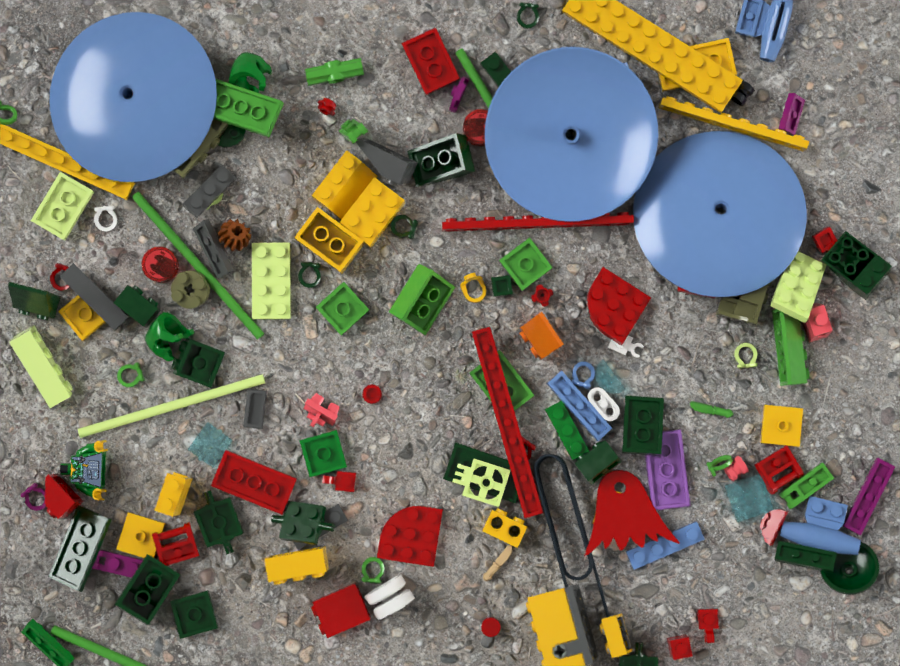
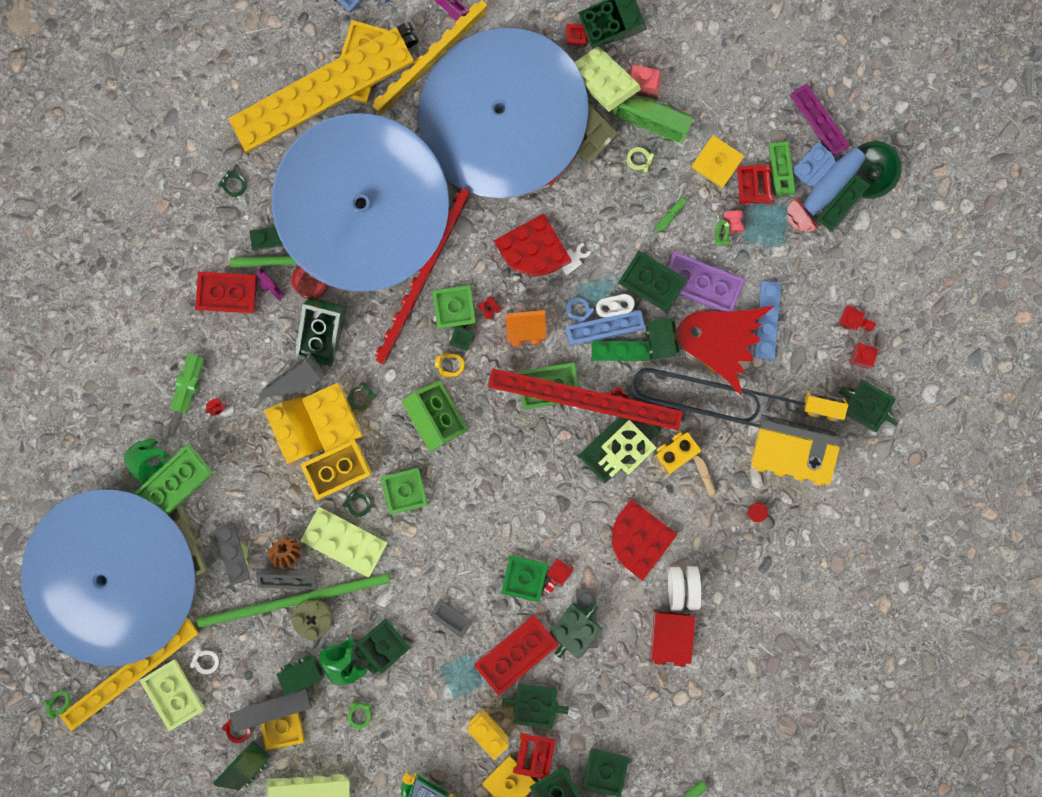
camera: 60 degrees left, 0 degrees up
(160, 264) = (274, 634): clear red head -> none
(170, 406) = (407, 693): yellowish green piece -> none
(232, 136) = (194, 507): dark green plate -> none
(296, 565) = (611, 656): yellow brick -> none
(319, 414) = (487, 563): coral hips -> none
(352, 130) = (248, 395): bright green plate -> none
(372, 394) = (494, 506): red tile -> none
(377, 579) = (655, 600): bright green piece -> none

